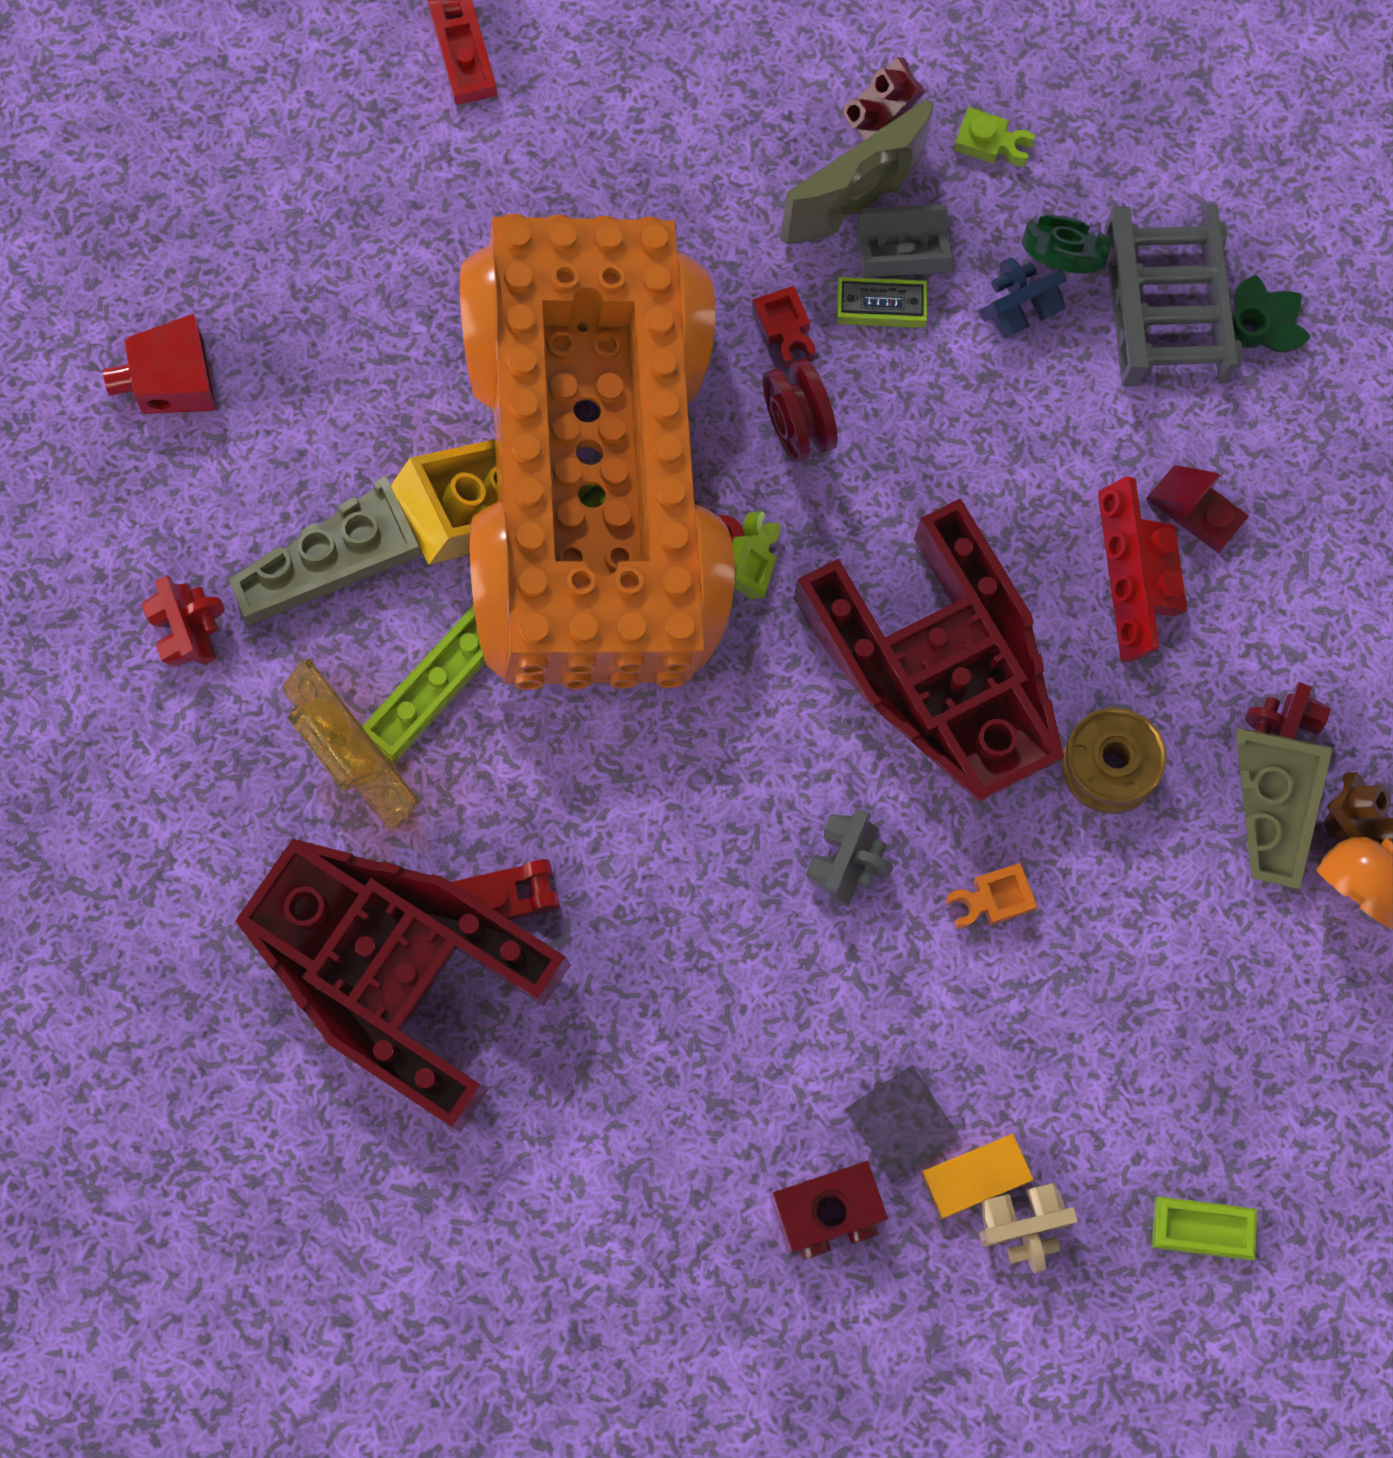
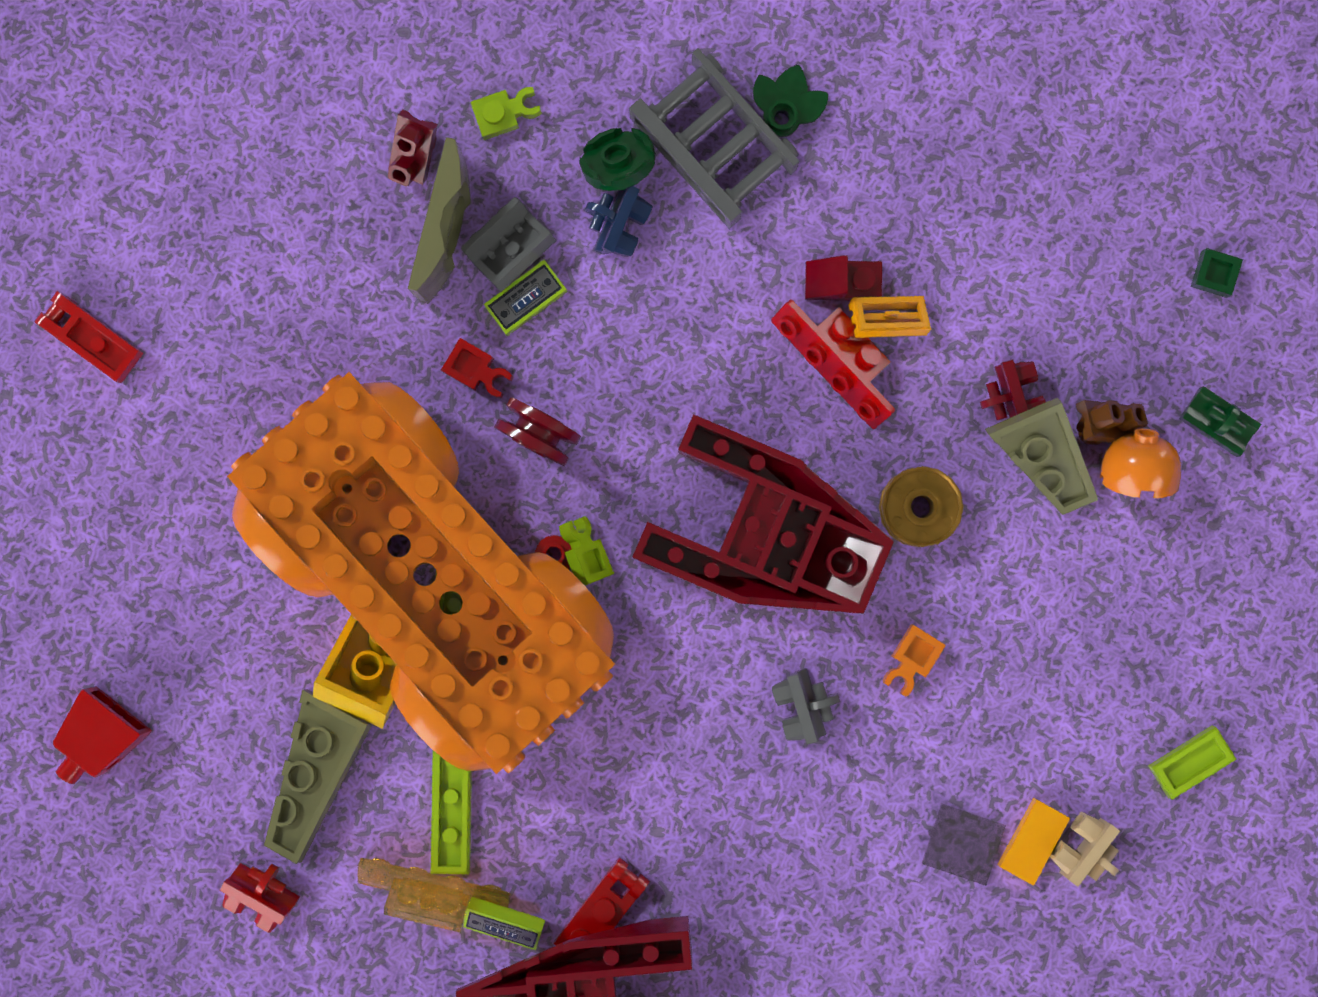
camera: 30 degrees left, 15 degrees up
(385, 826) = (503, 923): none -> tile
(849, 1187) = (963, 915): dark red brick -> none
(1218, 566) = (891, 322): none -> light orange tile

